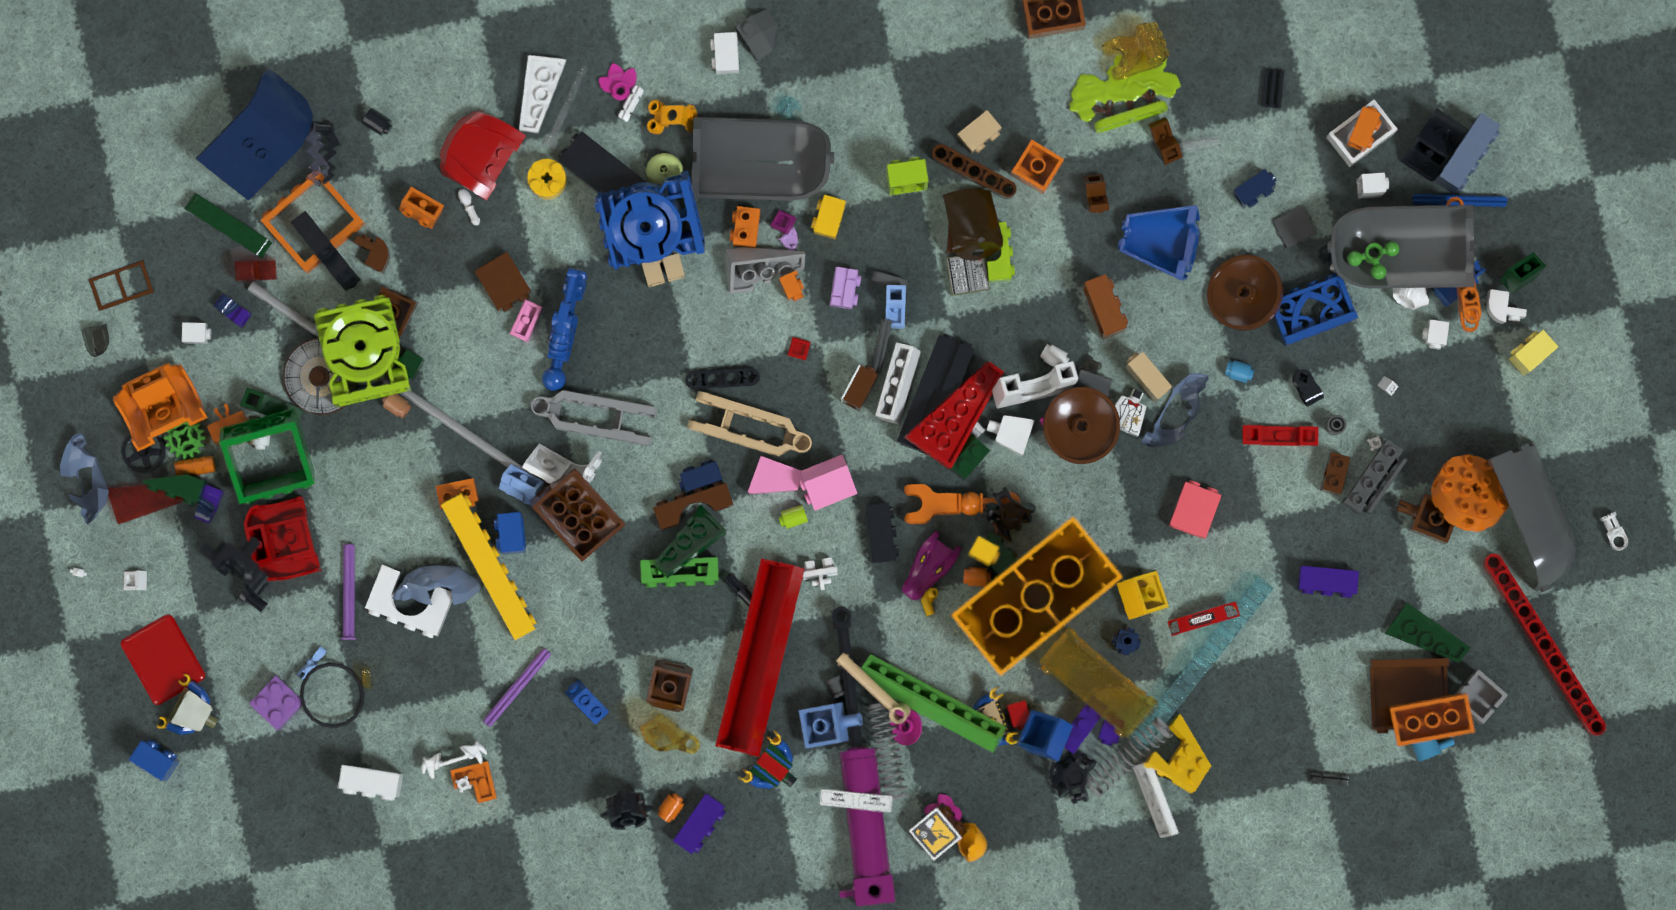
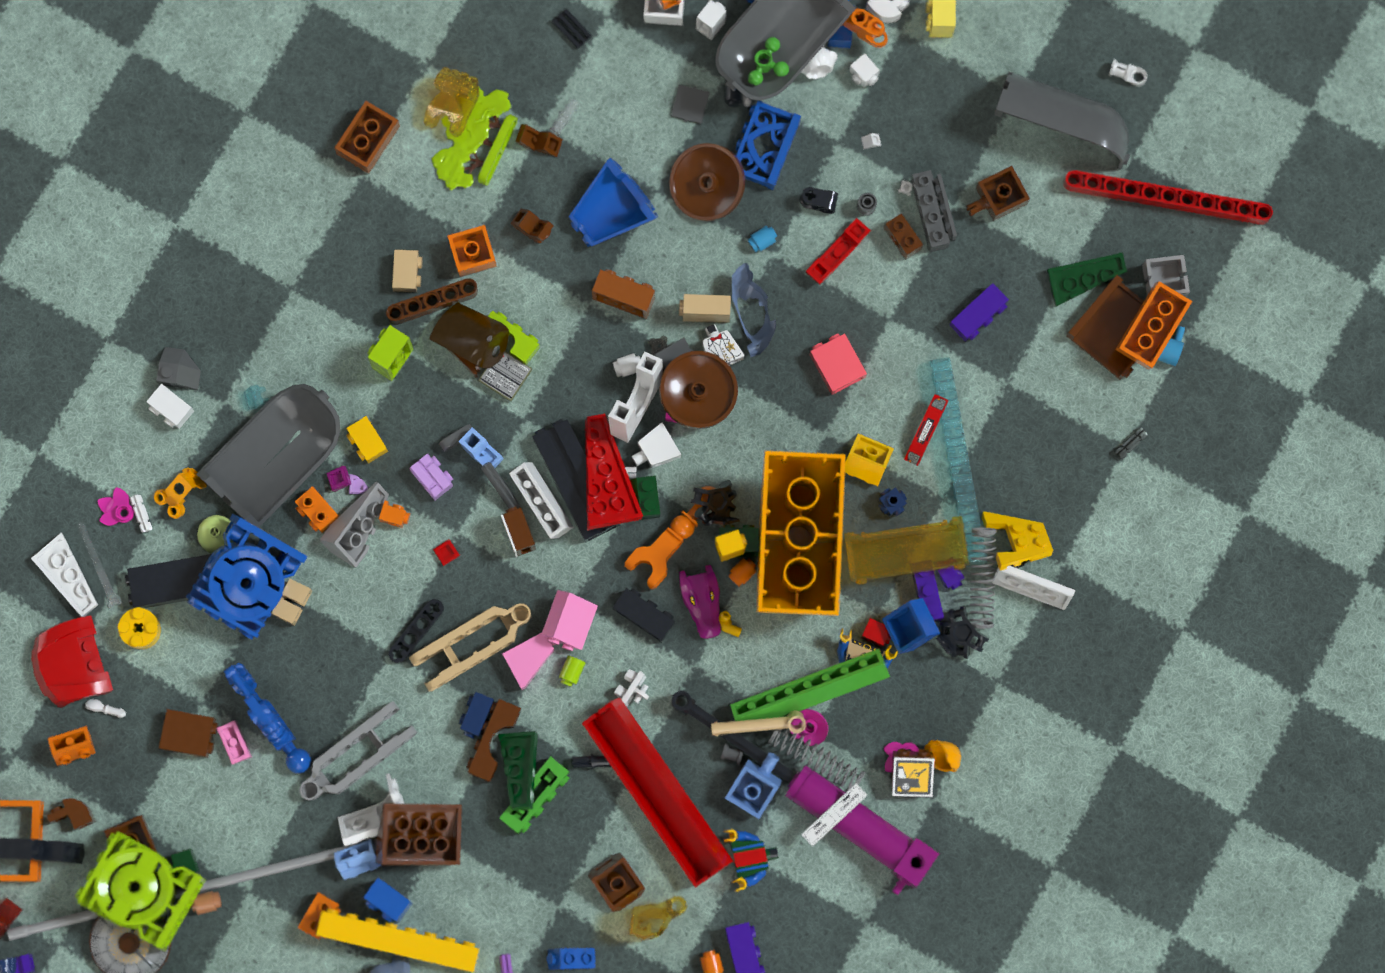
camera: 50 degrees left, 5 degrees down
(1255, 188) = (635, 105): dark blue brick -> none
(1469, 493) = (1007, 149): orange brick -> none

